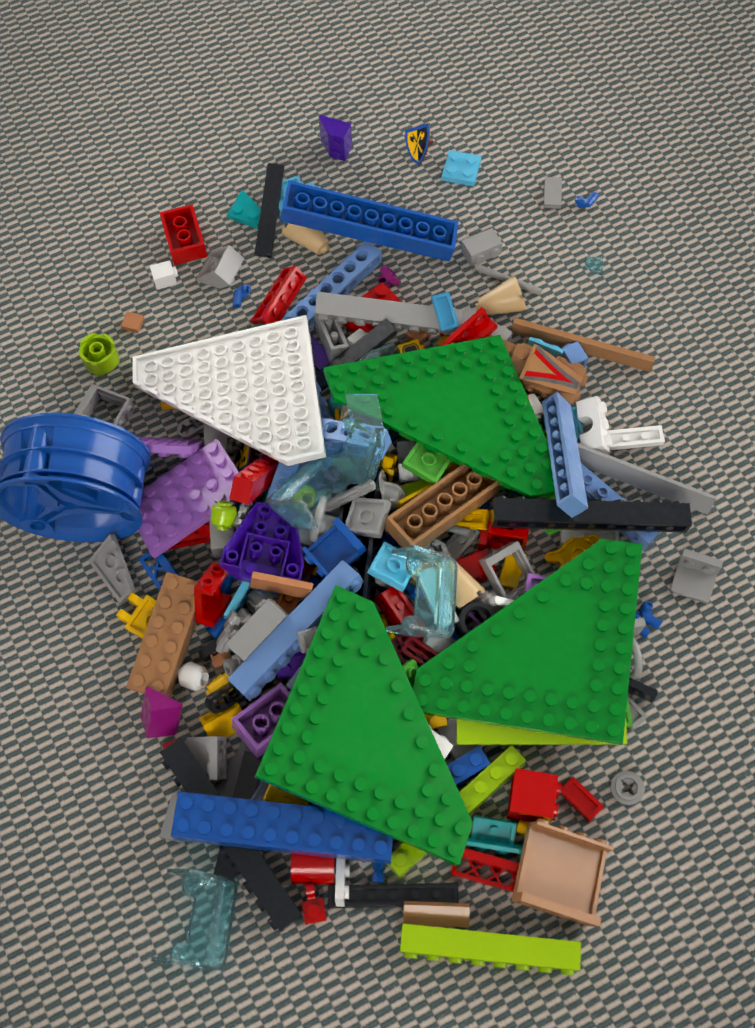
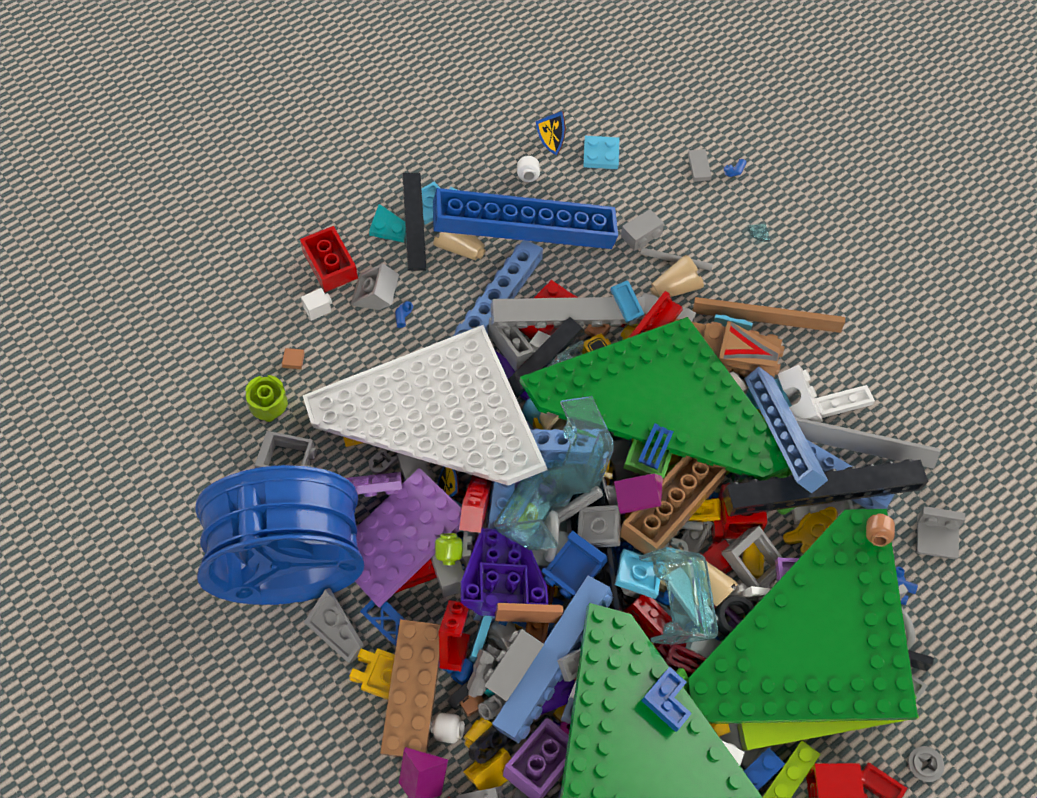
camera: 15 degrees left, 5 degrees down
(279, 296) = (447, 310): red fence -> none
(336, 137) = (466, 137): dark purple slope -> none
(381, 686) = (662, 701): none -> plate
(387, 174) = (528, 169): none -> white head
(390, 276) = (555, 272): magenta tile -> none
(408, 491) = (639, 493): none -> magenta slope
(442, 437) = (662, 430): none -> blue tile
(575, 354) = (764, 324): medium blue brick -> none
(628, 562) = (880, 529): none -> nougat head

